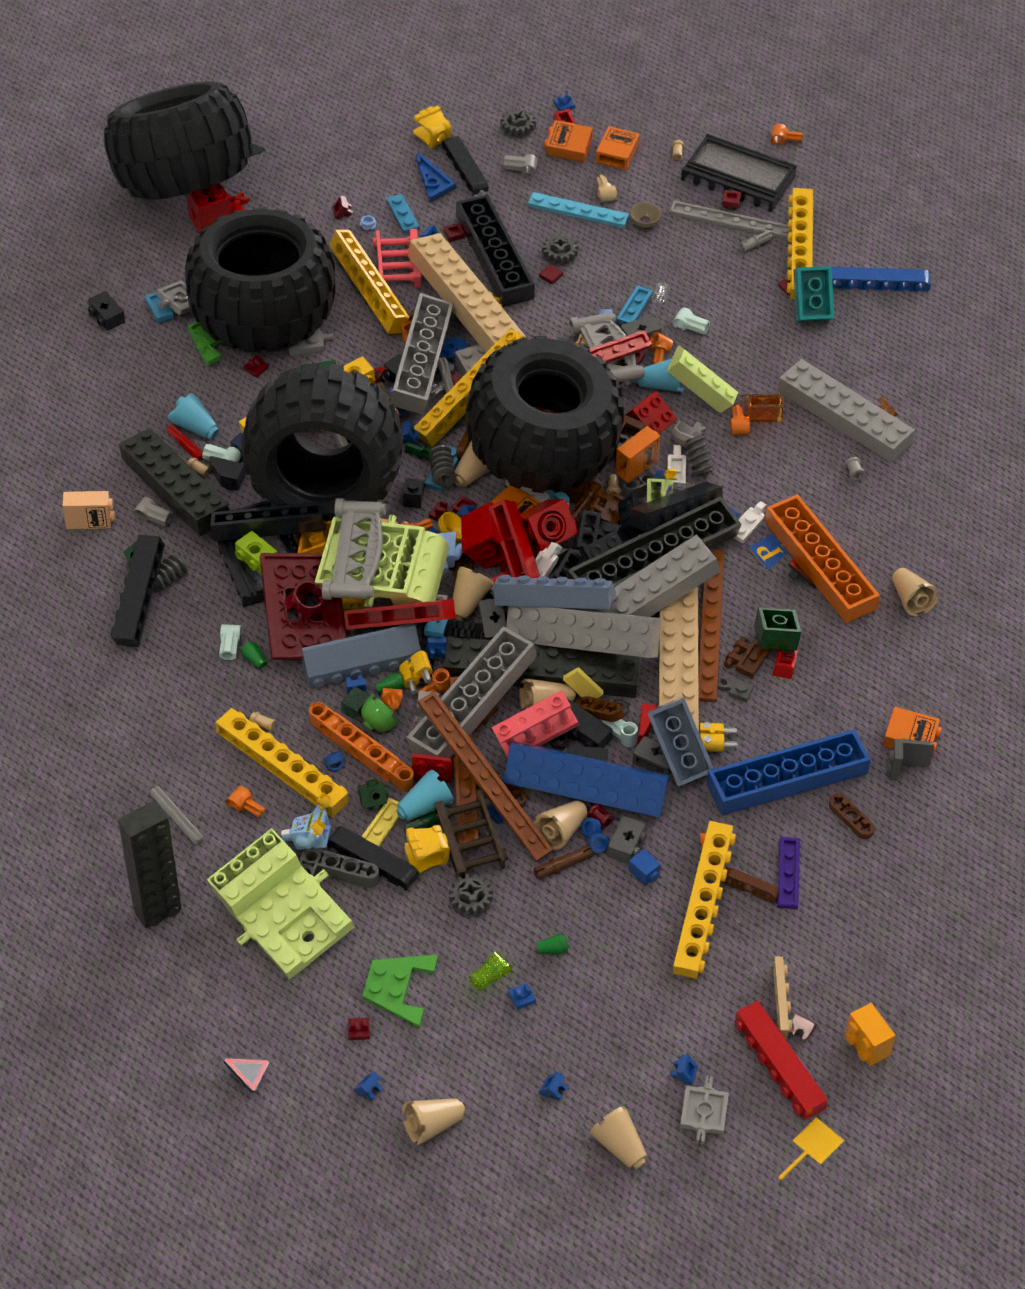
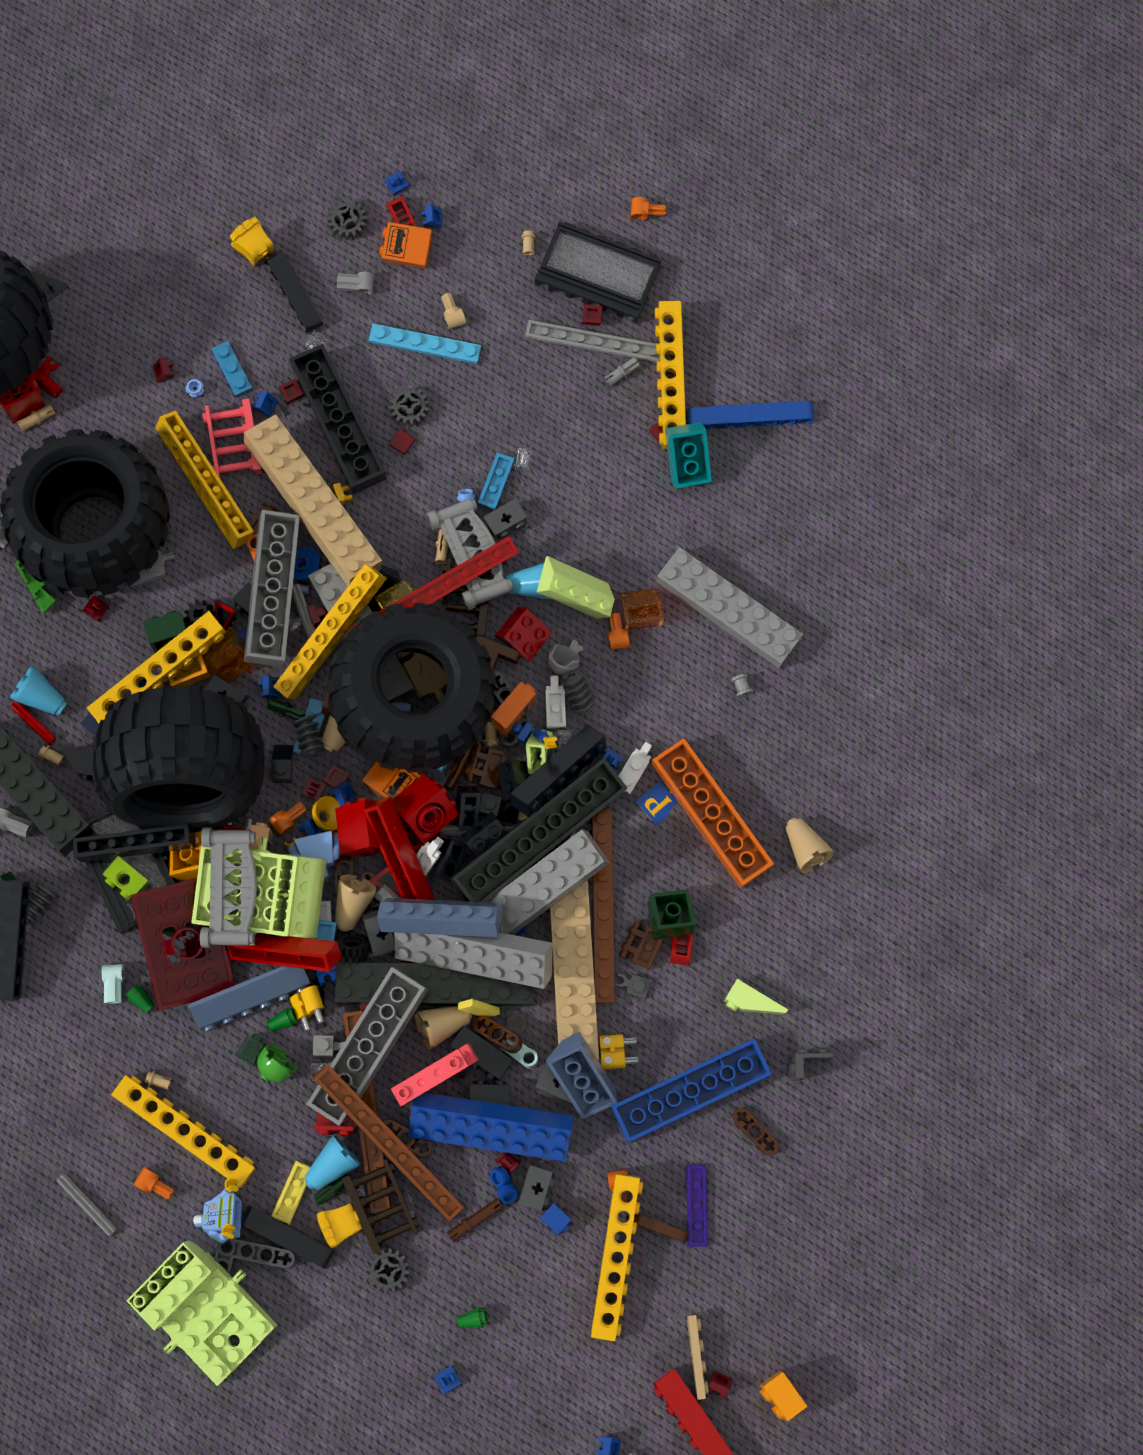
camera: 10 degrees left, 25 degrees up
(150, 864) = (67, 1319): pearl dark grey brick -> none
(230, 453) = (76, 739): light aqua piece -> none
(334, 758) = (235, 1121): blue tile -> none
(358, 1028) = (294, 1434): dark red tile -> none
(359, 683) = (250, 1029): blue tile -> none
(361, 746) = (261, 1102): orange beam -> none
(367, 790) = (279, 1163): dark green brick -> none
(389, 983) = (318, 1380): bright green wing -> none
(392, 698) = (286, 1041): orange axle -> none
(434, 180) = (263, 317): blue wing -> none
(439, 682) = (329, 1018): orange axle -> none
(494, 968) = (417, 1354): clear neon green piece -> none
(561, 823) = (470, 1177): tan cone -> none
(595, 123) = (433, 216): none -> blue tile
(617, 148) = (461, 248): orange brick -> none
(644, 474) = (523, 732): none -> blue tile
(645, 210) = (499, 339): dark tan piece -> none
(645, 723) = (545, 1037): red slope -> none
(660, 346) = (527, 535): orange axle -> none
(686, 319) = (555, 496): light aqua piece -> none
(797, 570) = (689, 832): black piece -> none
(853, 708) = (750, 1000): none -> yellowish green slope
(886, 406) = (772, 597): clear orange tile -> none
(911, 726) = (812, 1025): orange brick -> none

